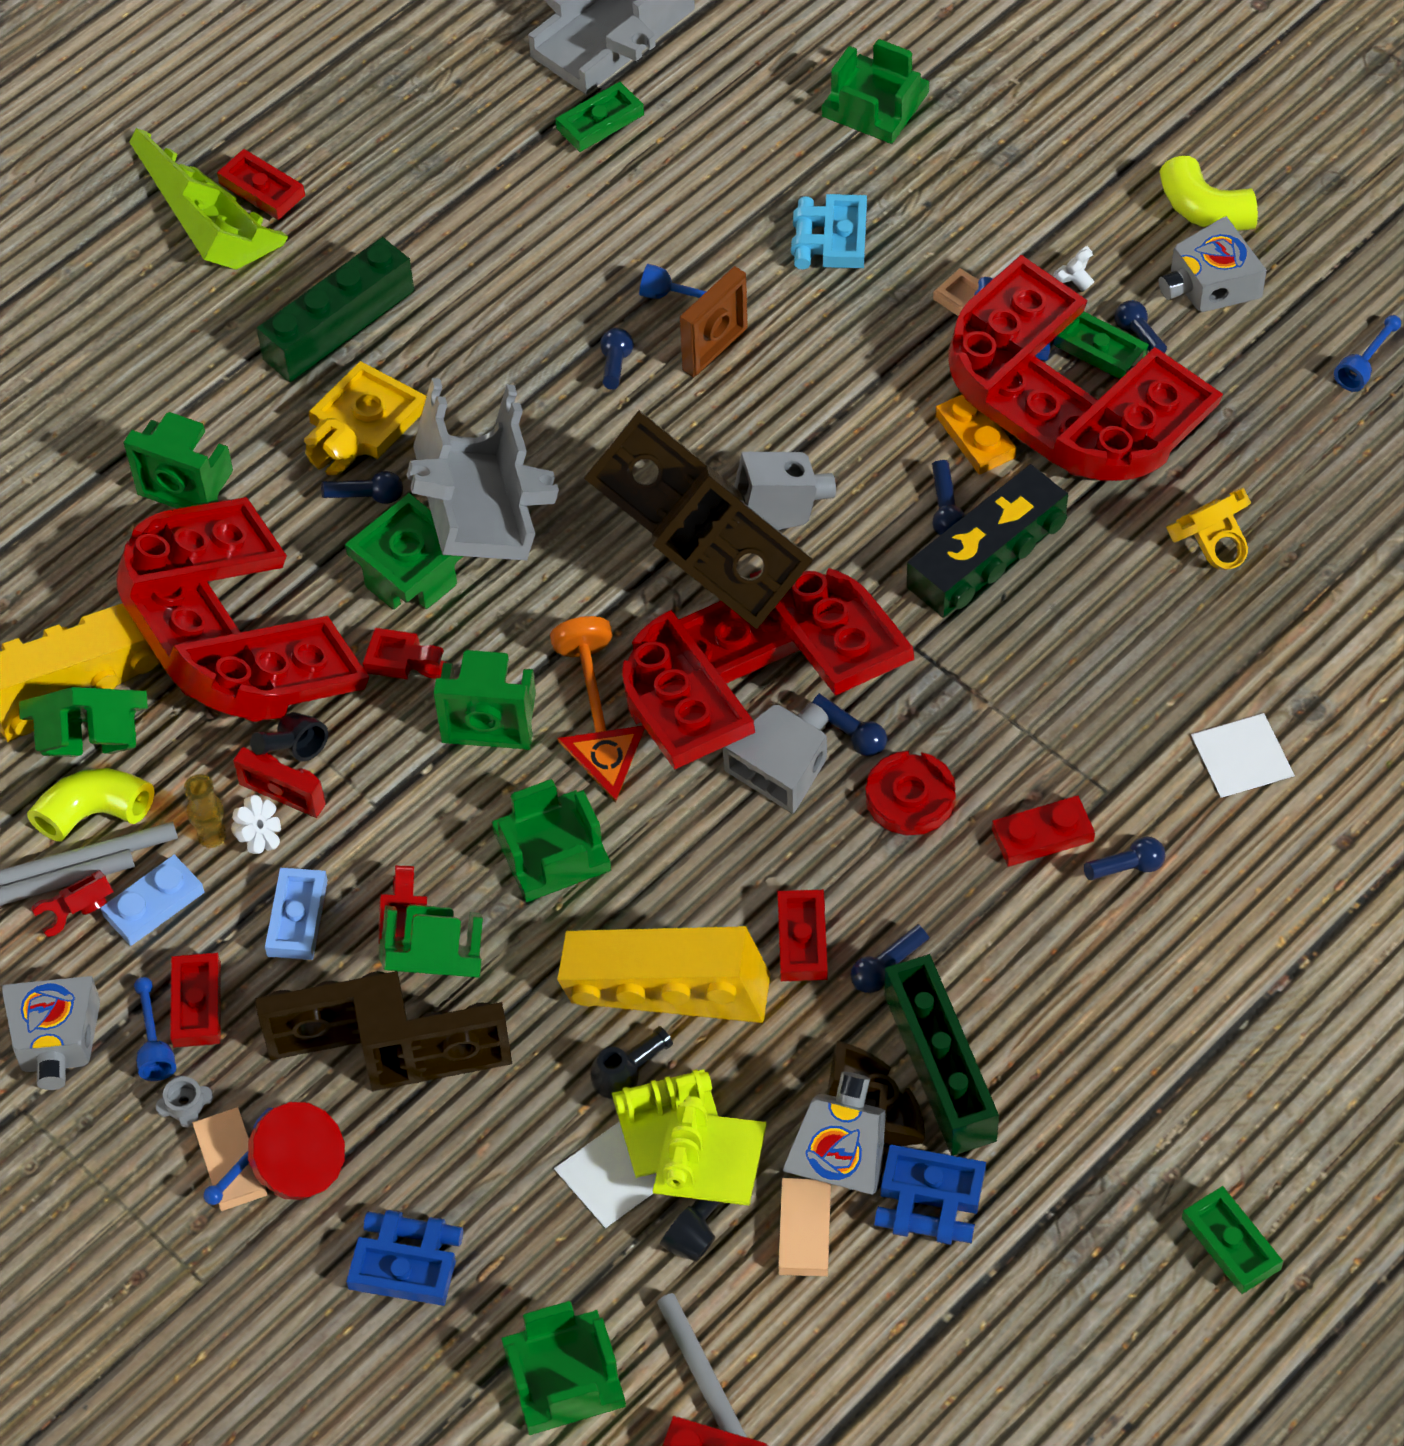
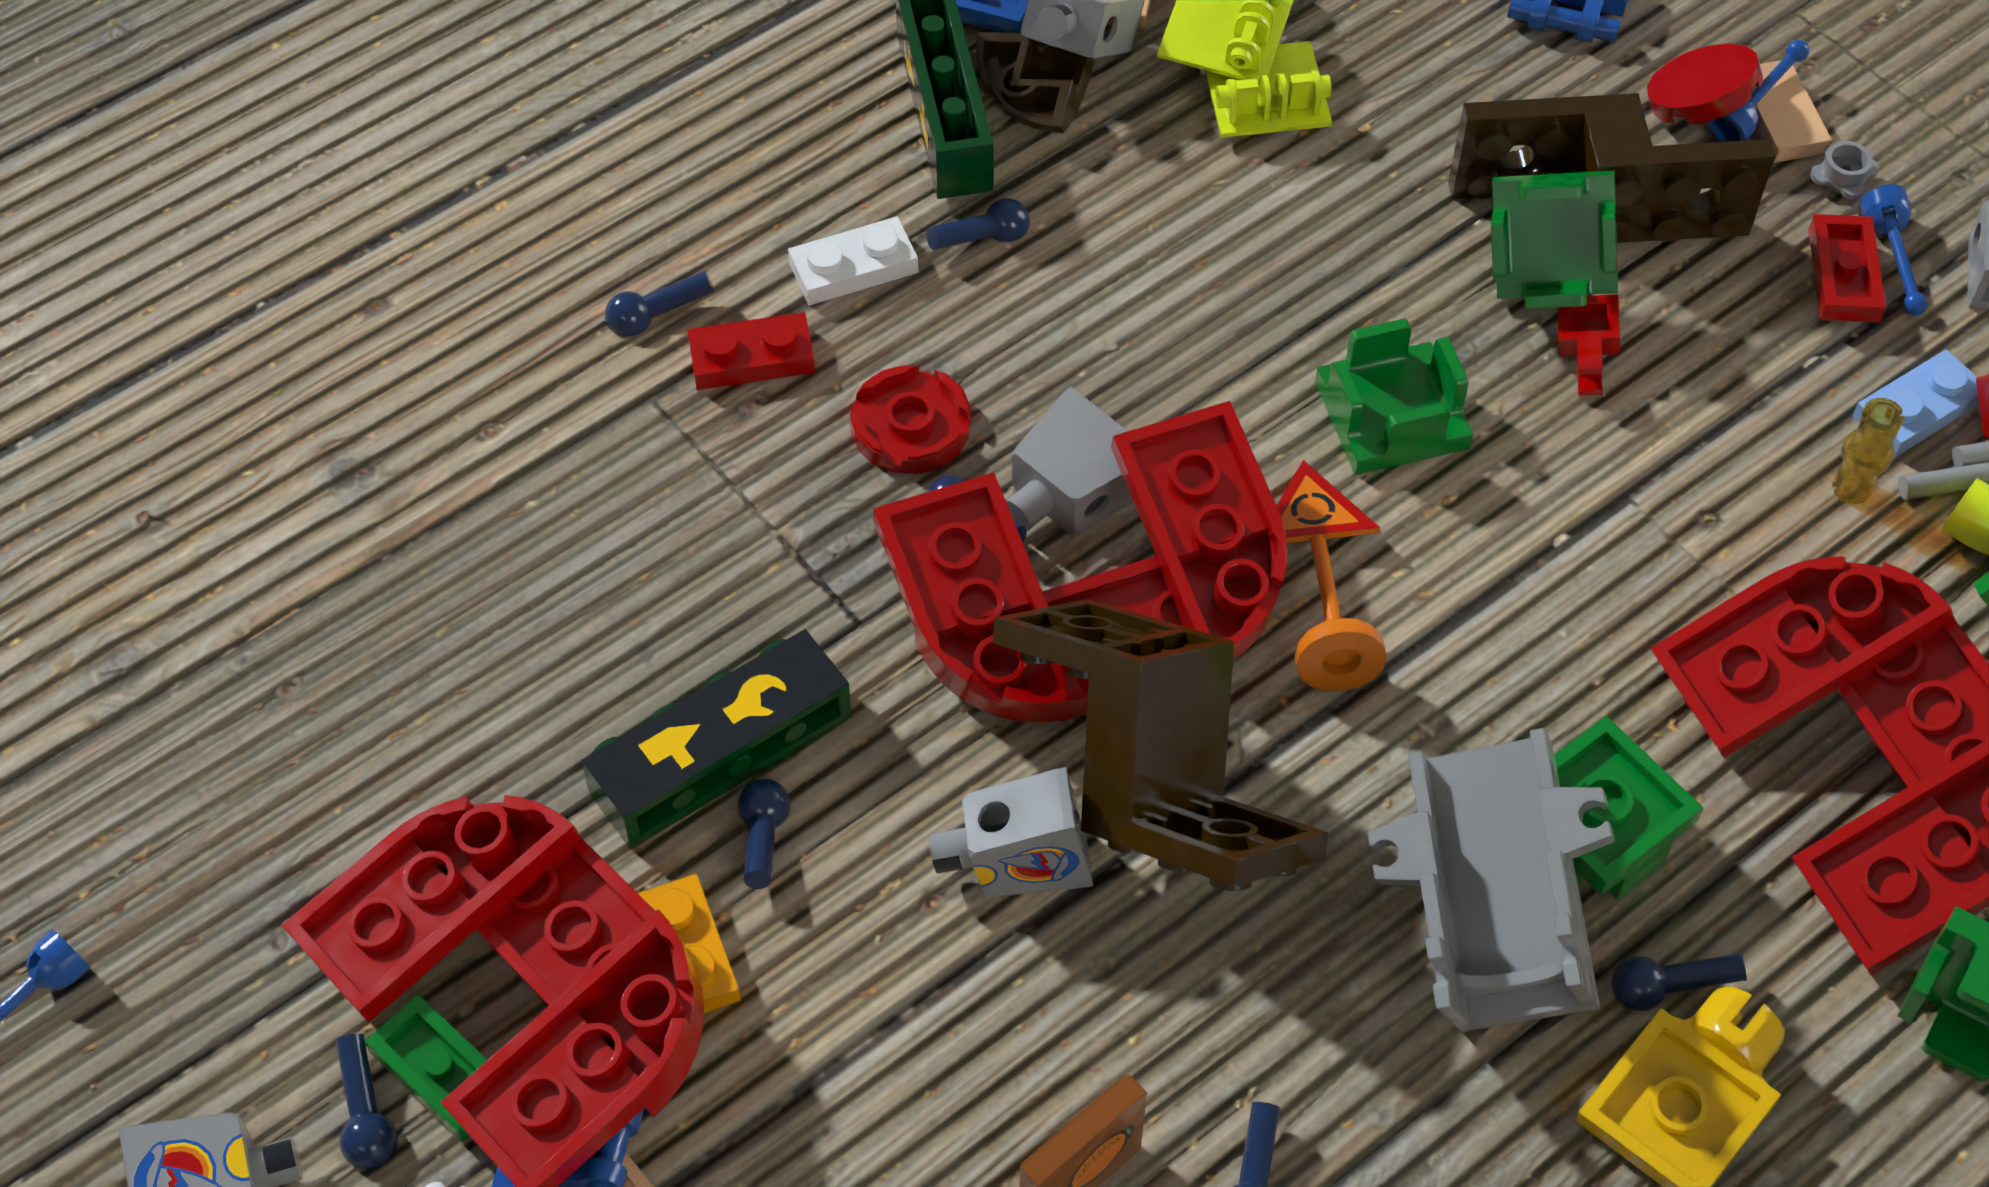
camera: 175 degrees left, 0 degrees up
(255, 824) = (1795, 460): white plant -> none
(280, 782) = (1767, 512): red plate -> none
(296, 913) = (1728, 352): light blue plate -> none
(297, 733) = (1753, 561): black bar -> none
(397, 652) = (1611, 678): red plate -> none
(482, 706) = (1482, 547): green panel -> none
(605, 1177) = (1348, 58): white sticker -> none
(626, 1075) = (1324, 148): black bar -> none
(667, 971) = (1259, 210): yellow wedge -> none
(802, 935) = (1082, 254): red plate -> none
(983, 917) = (853, 260): none -> white plate
(1211, 524) = (384, 702): yellow tile -> none
(1242, 755) = (461, 423): white sticker -> none

